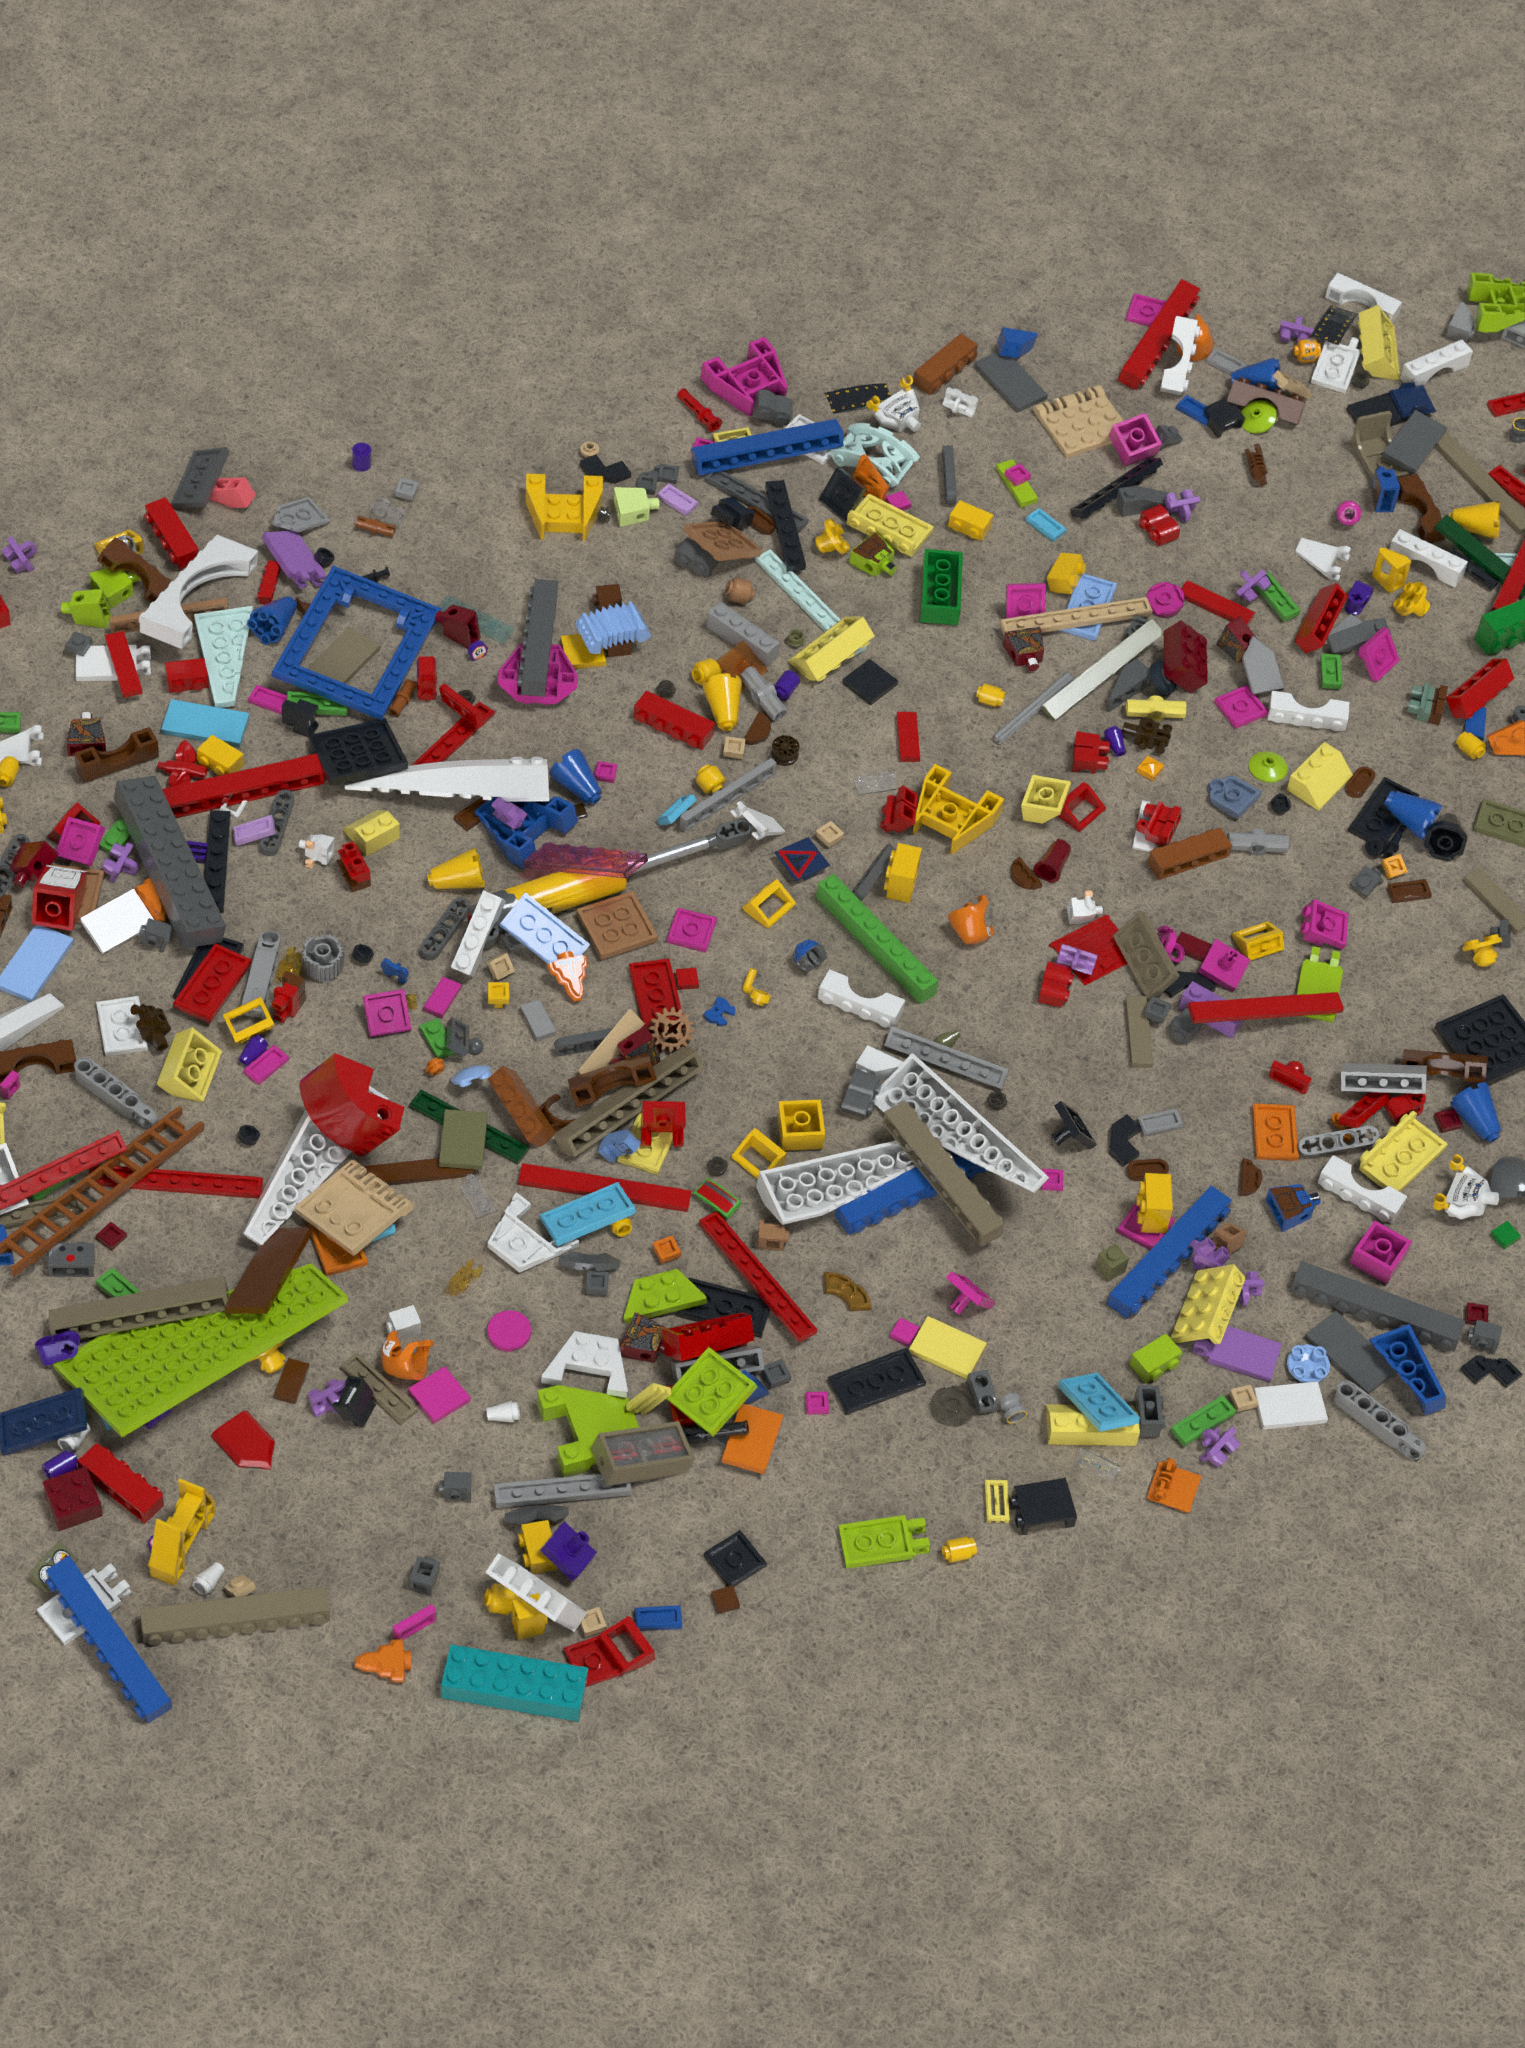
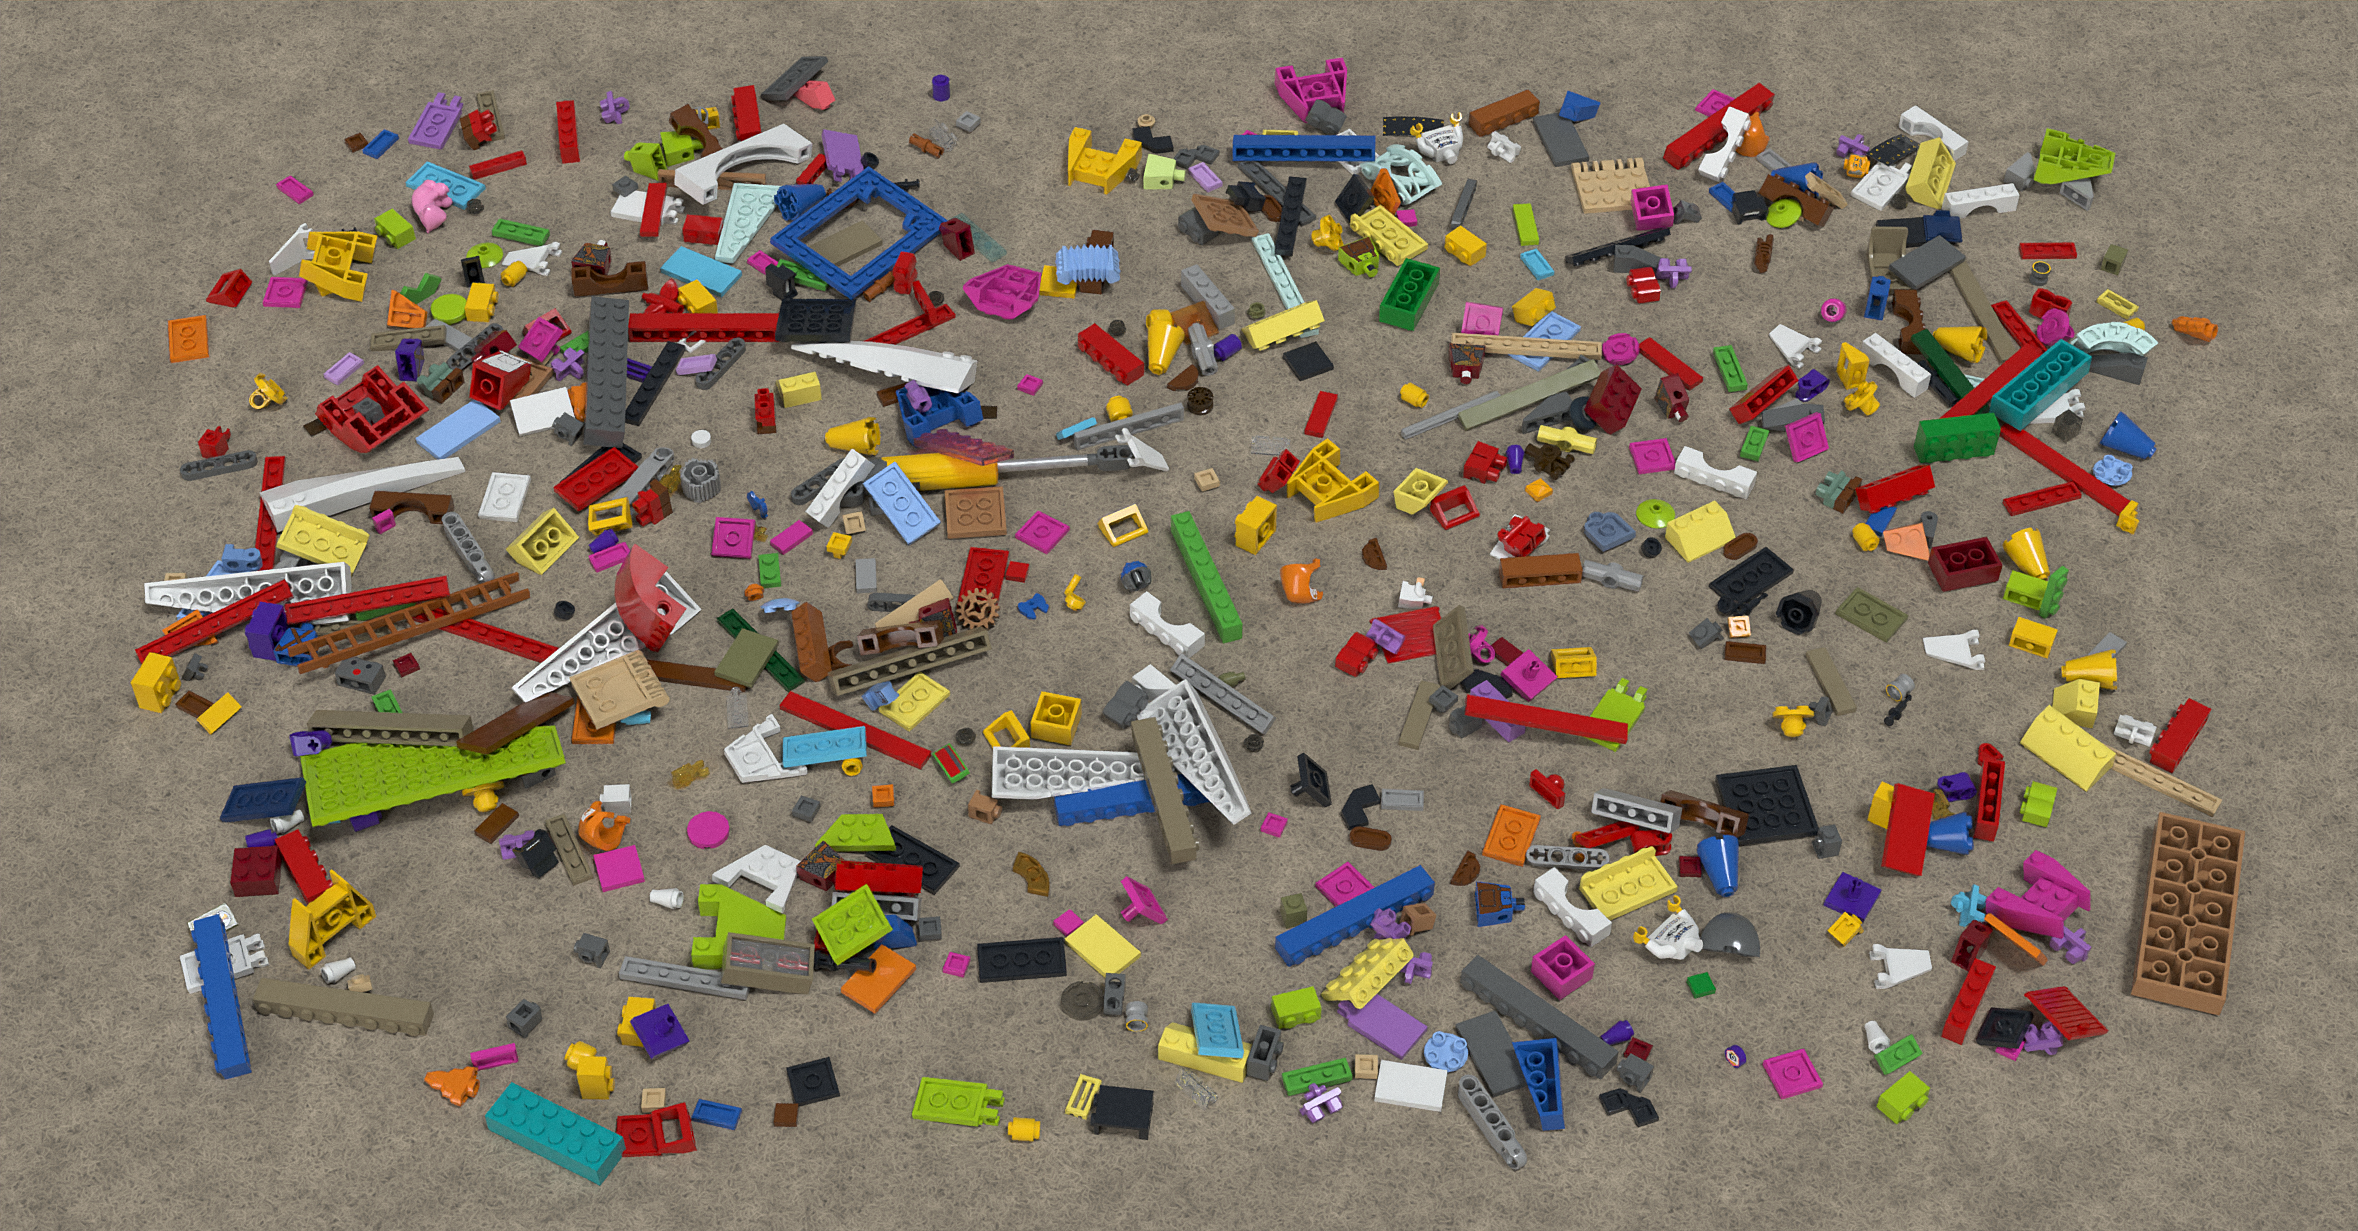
camera: 25 degrees right, 5 degrees down
(152, 1025) = (527, 500): dark brown piece -> none
(245, 1441) = (431, 863): red tile -> none
(297, 911) = (701, 439): none -> white tile
(299, 515) = (864, 124): light grey tile -> none
(318, 849) = (743, 391): white piece -> none
(362, 953) = (739, 485): black tile -> none
(459, 1041) = (786, 572): dark grey plate -> none
(477, 650) = (964, 261): tile -> none
(525, 1584) = (624, 1075): white window -> none
(528, 1514) = (658, 993): dark grey tile -> none
(538, 638) = (1019, 260): dark grey brick -> none
(570, 973) = (910, 541): rock -> none
(577, 777) = (998, 380): blue cone -> none
(597, 1262) = (805, 788): dark grey tile -> none
(648, 1398) = (799, 920): light yellow tile -> none
(663, 1117) = (928, 680): red panel -> none
(703, 414) = (1262, 113): red pin -> none
(734, 747) = (1155, 389): tan plate -> none
(739, 591) = (1222, 261): medium nougat head -> none
(758, 1277) = (954, 840): red tile -> none
(802, 859) = (1170, 495): dark blue piece -> none
(873, 872) = (1221, 526): dark grey beam -> none
(1017, 474) = (1527, 216): dark pink tile -> none
(1052, 863) = (1405, 548): dark red plant -> none
(1154, 1203) = (1354, 865): yellow brick -> none
(1174, 1486) = (1260, 1129): orange hinge -> none
(1259, 579) = (1715, 348): medium lavender hips -> none
(1261, 668) = (1684, 425): light grey tile -> none
(1324, 924) = (1644, 662): dark pink plate -> none
(1413, 811) = (1775, 579): blue cone -> none
(1454, 1301) = (1618, 1033): none -> dark purple cone

